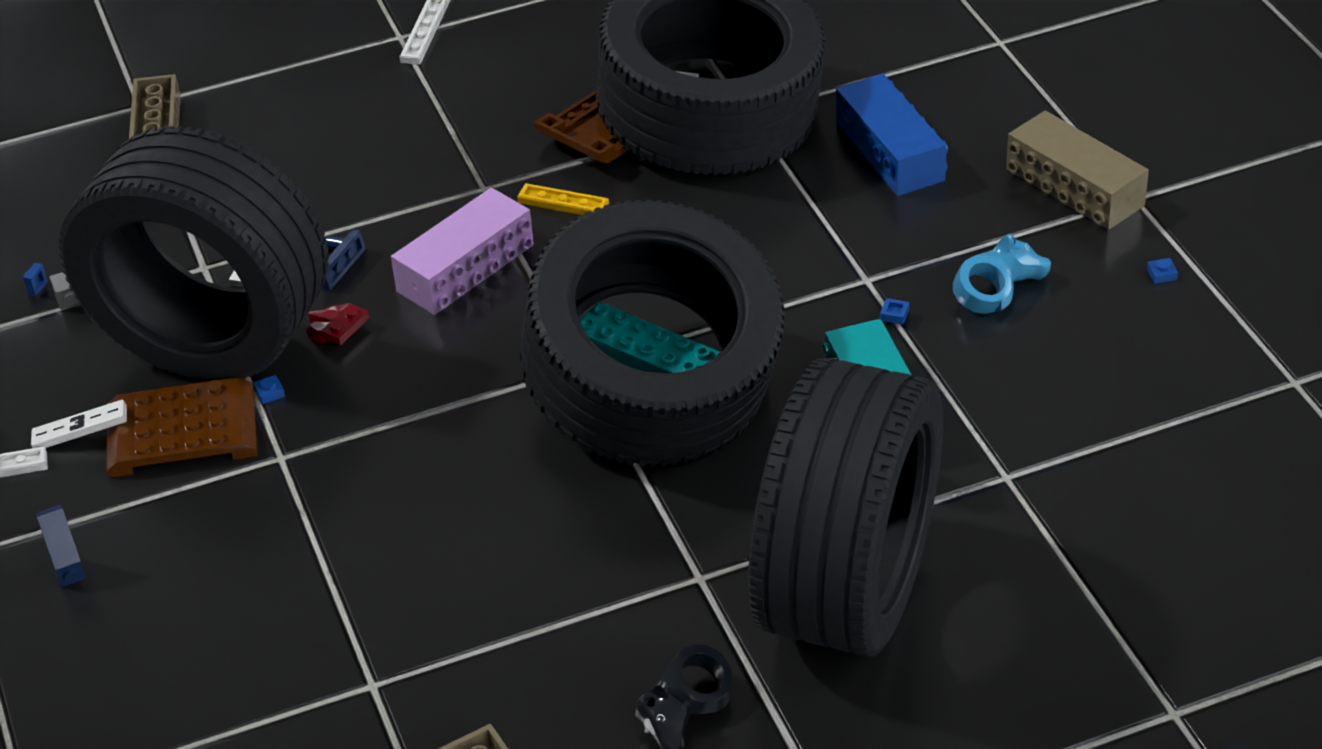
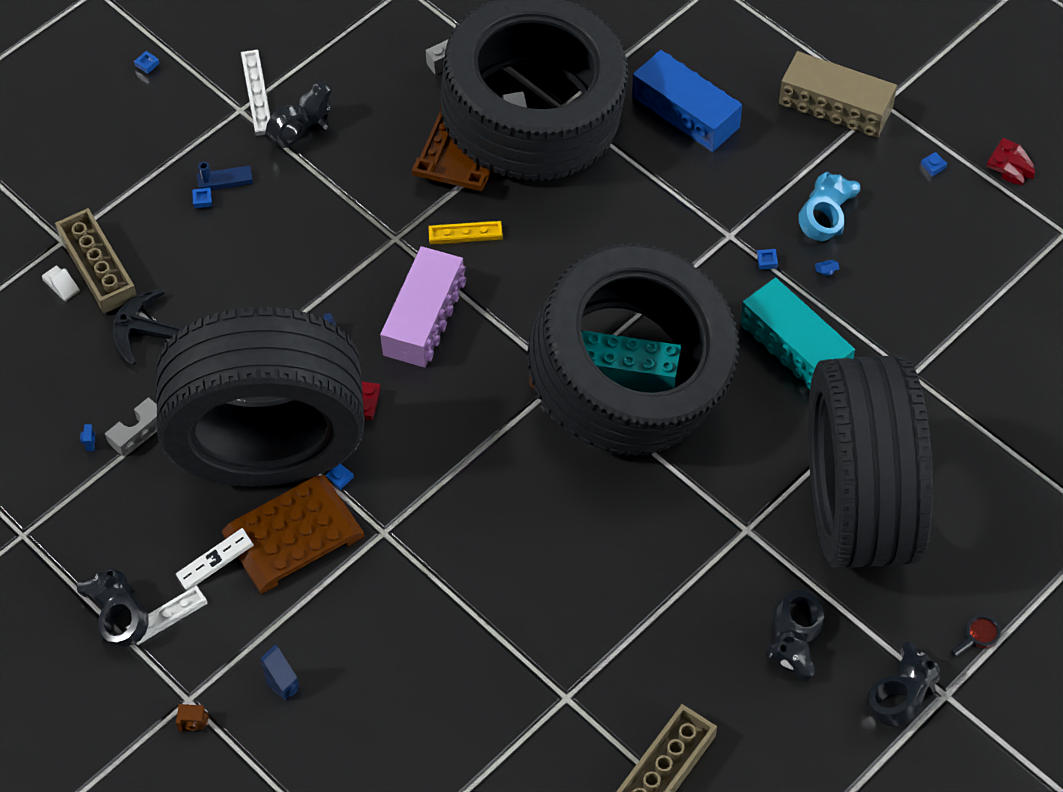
camera: 25 degrees left, 15 degrees up
(108, 138) = (61, 282): none -> white slope
(303, 100) = (202, 198): none -> blue plate
(335, 89) = (223, 178): none -> dark blue piece
(465, 48) = (292, 121): none -> black animal
(962, 338) = (827, 267): none -> blue plate
(1262, 291) = (1011, 162): none -> dark red plate

